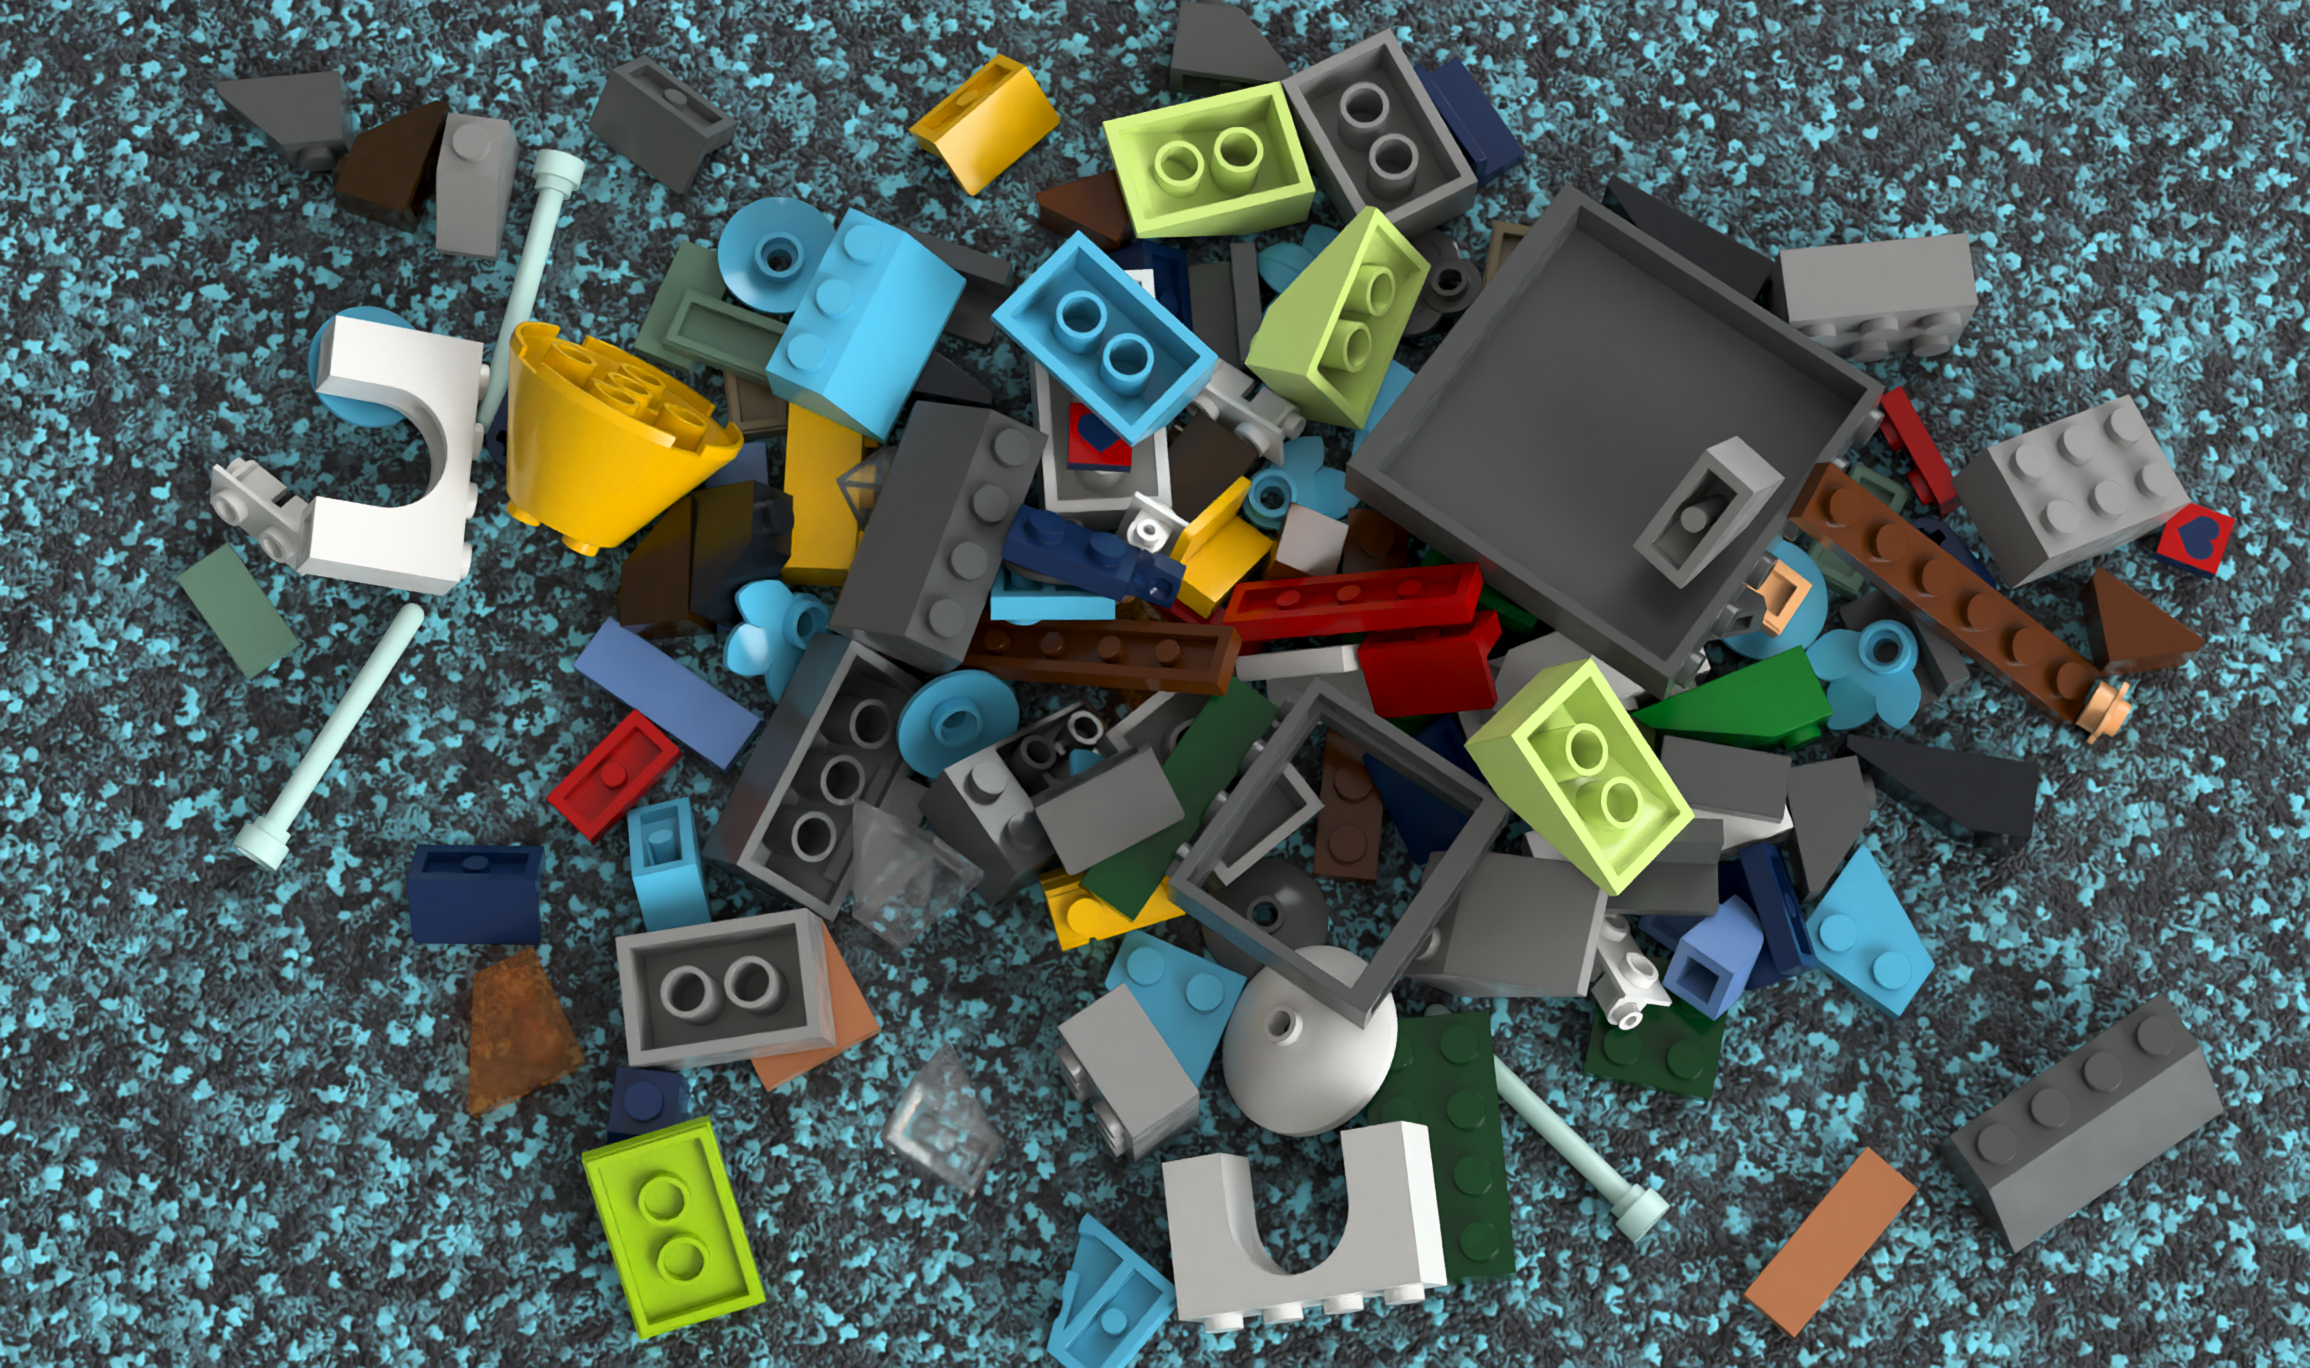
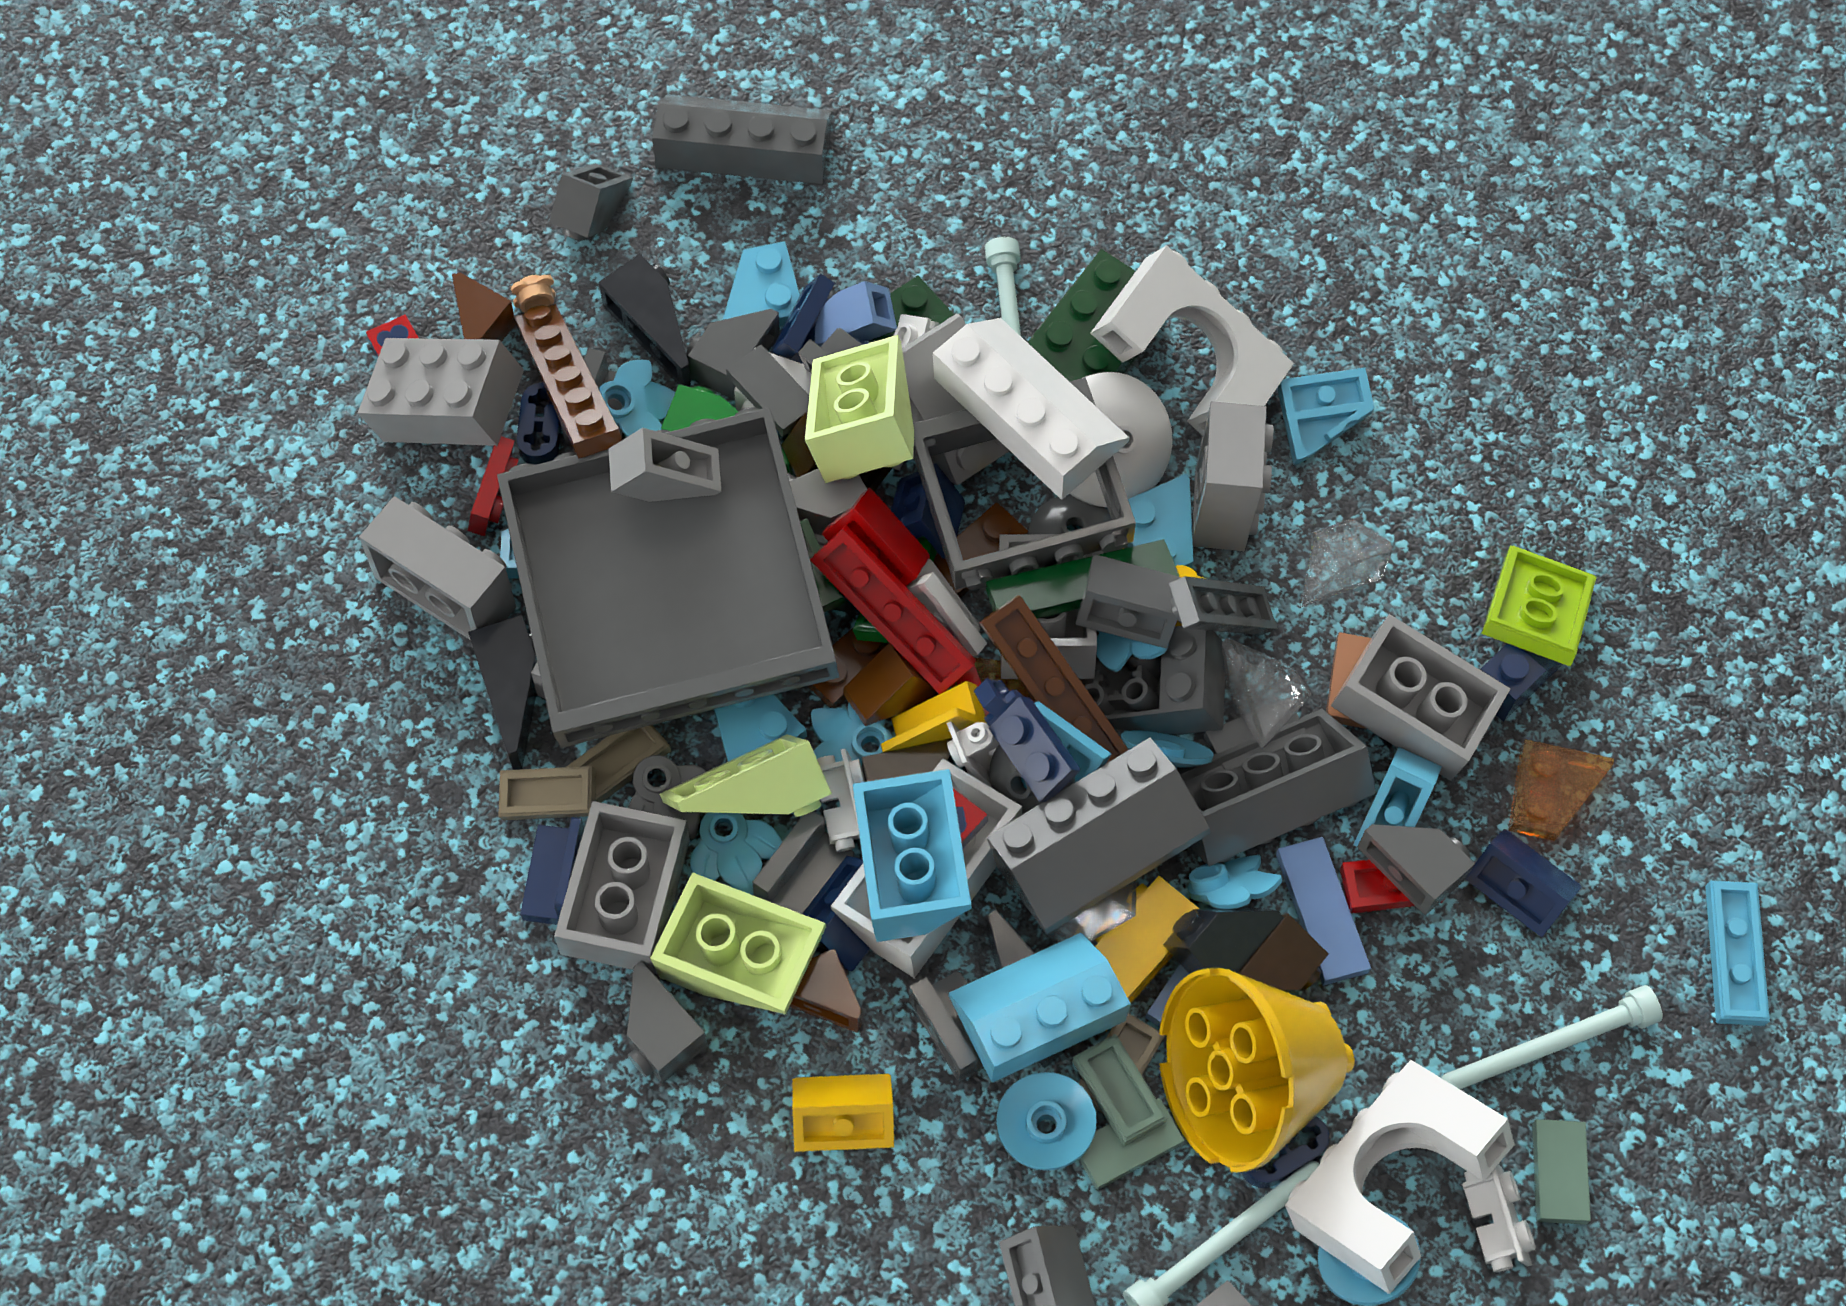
camera: 145 degrees left, 10 degrees down
(199, 995) = (1737, 953): none -> medium azure tile
(593, 794) = (1418, 861): none -> dark grey slope
(1007, 895) = (1221, 606): none -> dark grey plate
(1396, 915) = (1026, 404): none -> white slope
(1527, 191) = (546, 793): none -> dark tan tile
(1829, 1243) = (919, 178): nougat tile -> none
(2164, 882) = (588, 200): none -> dark grey slope

